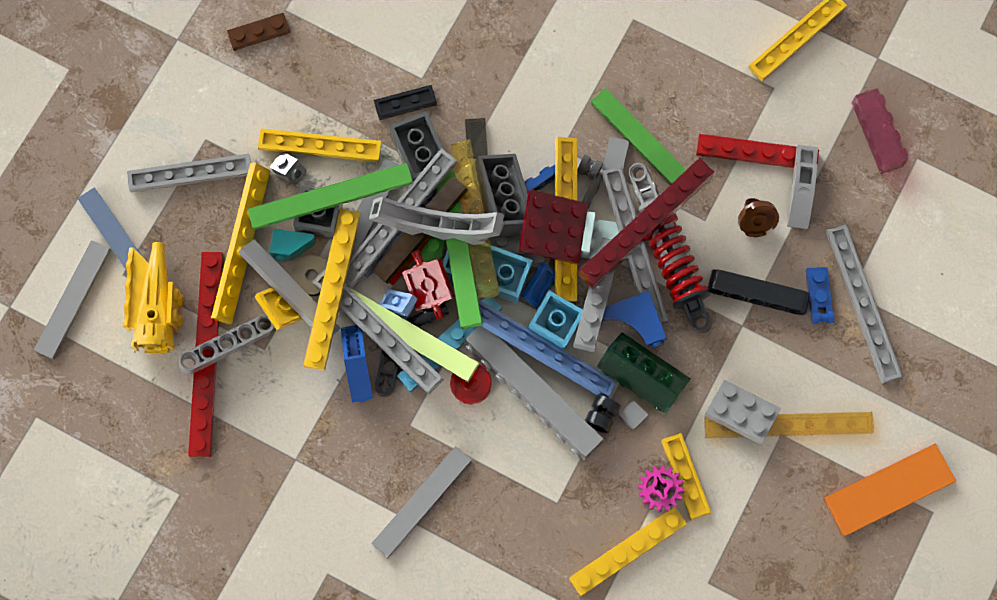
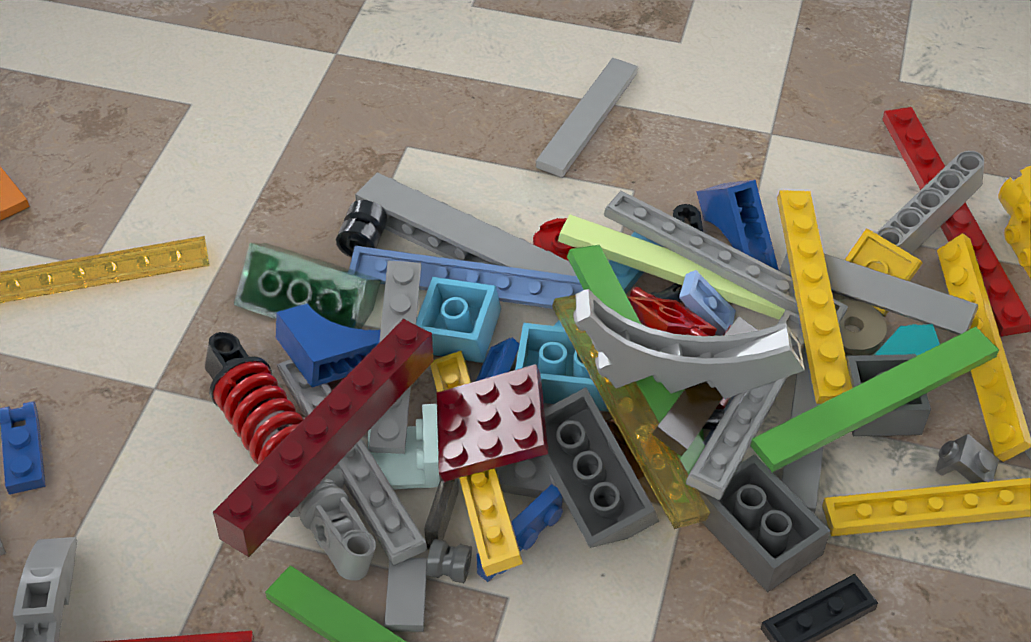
camera: 170 degrees right, 25 degrees down
(476, 133) = (668, 579): clear smoke tile -> none
(627, 551) = (300, 113): yellow plate -> none
(633, 415) = (316, 244): light grey tile -> none
(669, 486) = (264, 167): dark pink gear -> none
(682, 463) = (231, 196): yellow tile -> none
(742, 412) = (149, 267): light grey plate -> none
(757, 217) = (132, 529): reddish brown tile -> none
(758, 292) = (127, 426): black beam -> none

